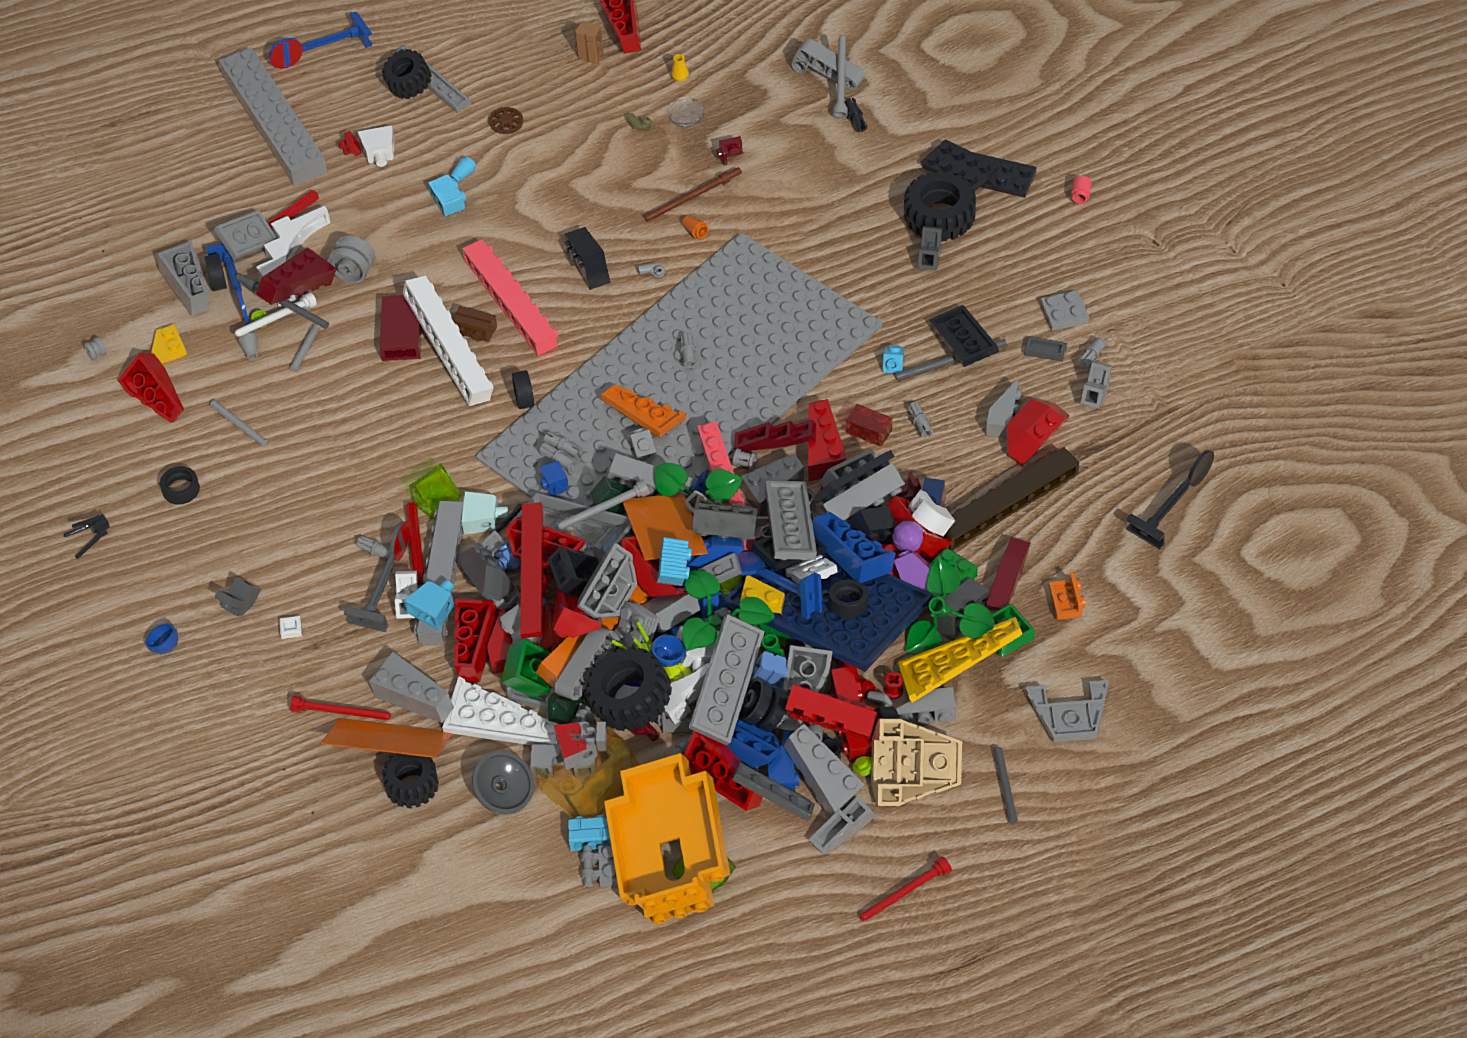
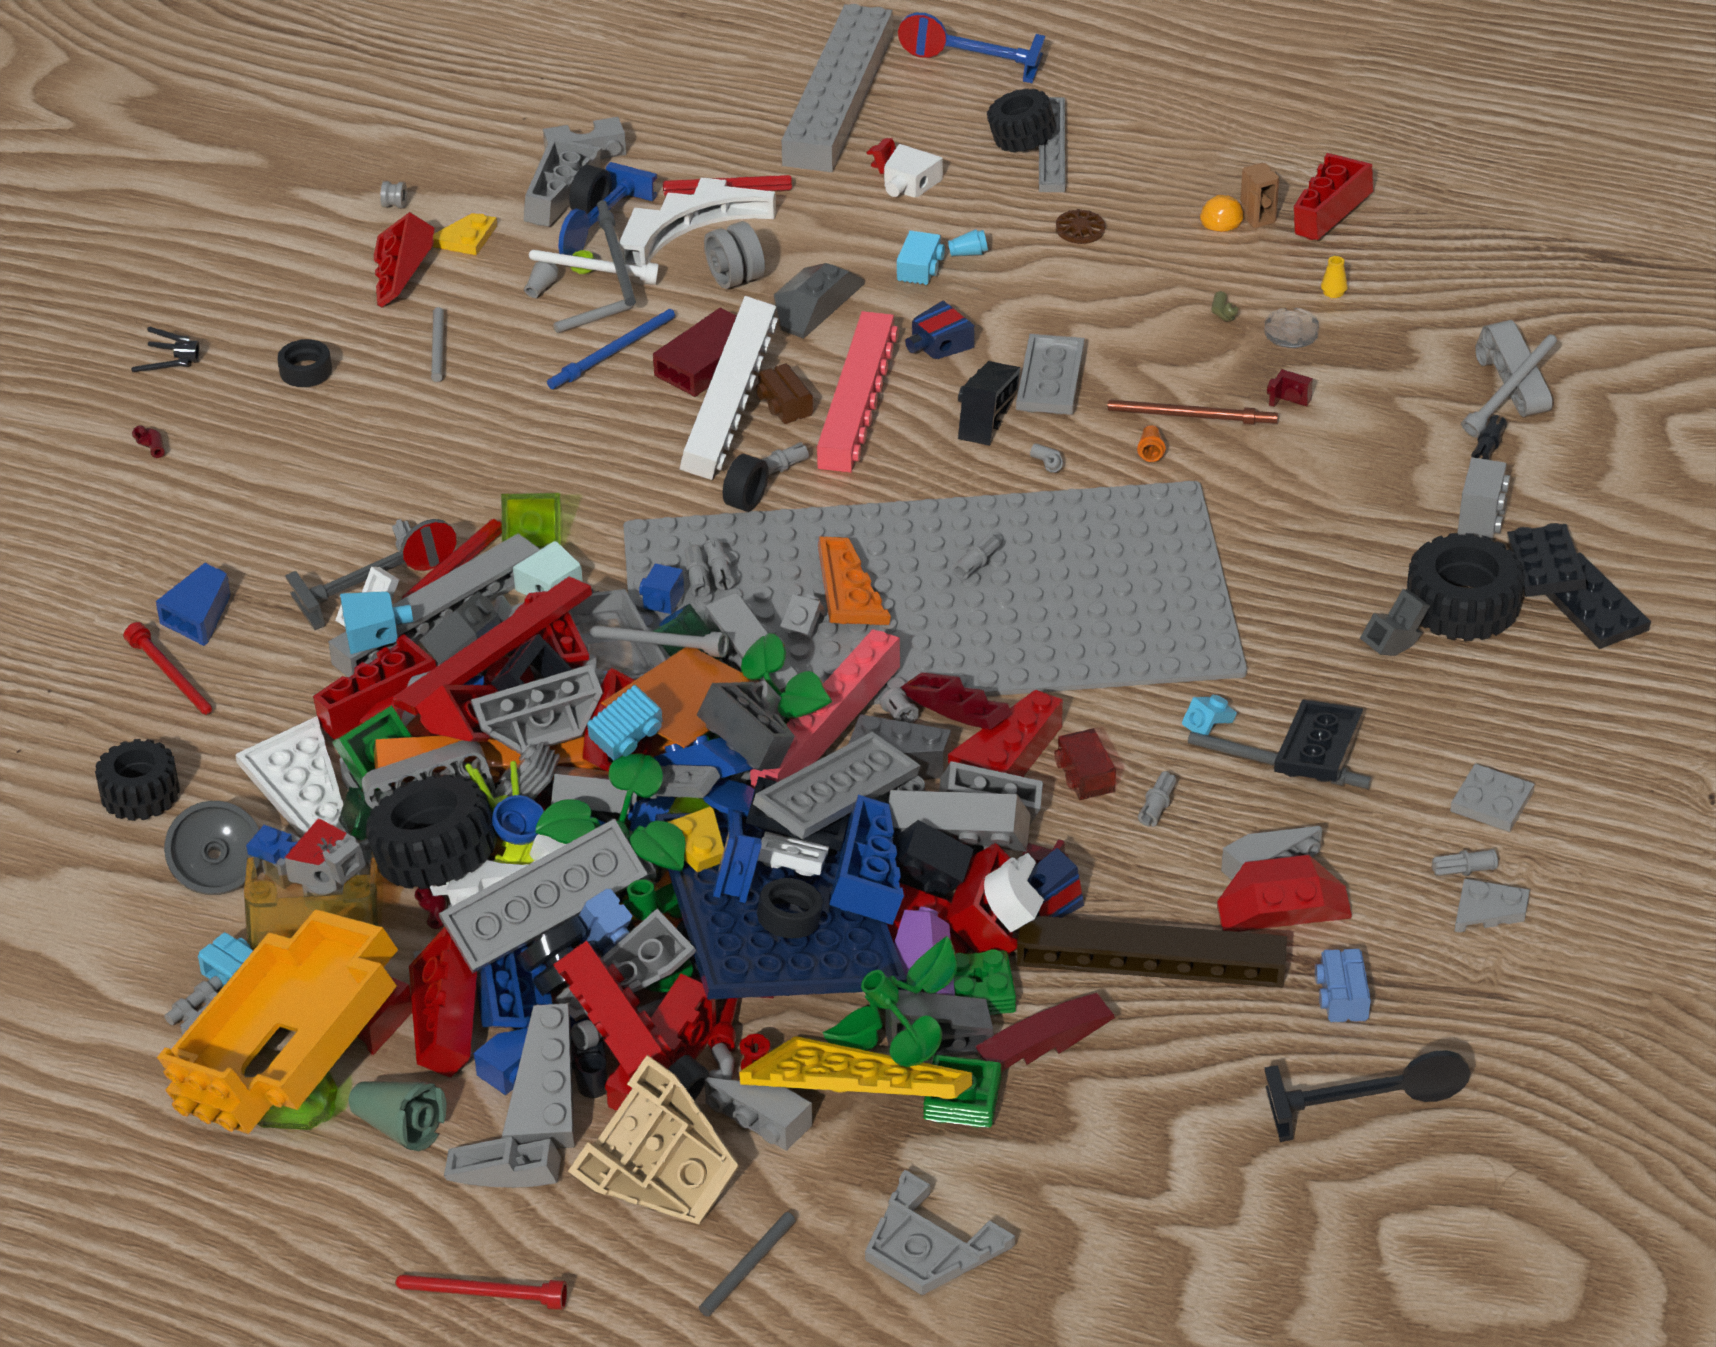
camera: 40 degrees right, 10 degrees down
(149, 589) = (149, 438): none -> dark red arm
(162, 639) = (97, 490): blue piece -> none
(175, 232) = (606, 134): none -> light grey arch
(239, 598) = (215, 501): dark grey brick -> none
(245, 234) = (658, 169): light grey tile -> none
(290, 627) = (232, 561): white tile -> none
(295, 277) = (650, 233): dark red wedge -> none
(309, 664) = (195, 603): none -> blue slope
(338, 387) = (574, 370): none -> blue bar
(387, 738) = (166, 723): orange piece -> none
(410, 689) = (251, 690): light grey wedge -> none
(415, 255) = (813, 297): none -> dark grey wedge
(513, 232) = (940, 332): none -> dark blue torso
(517, 363) = (782, 459): none -> light grey pin
(537, 758) = (270, 844): none -> blue plate
(573, 65) = (1221, 213): none -> light orange piece
(599, 218) = (1050, 374): none -> light grey plate
(763, 839) = (401, 1110): none -> sand green cone
(773, 791) = (464, 1063): dark grey tile -> none
(853, 477) = (934, 777): black plate -> none
(862, 766) = (604, 1115): lime plate -> none
(897, 152) = (1483, 498): none -> light grey brick
(907, 536) = (952, 894): medium lavender piece -> none
(1045, 349) = (1414, 823): dark grey tile -> none
(1067, 597) = (1083, 1109): orange bracket -> none
(1081, 189) = (1678, 677): coral brick -> none
(1097, 386) = (1421, 904): light grey brick -> none
(1109, 453) = (1344, 985): none -> medium blue brick
(1124, 366) = (1490, 904): none -> light grey wing

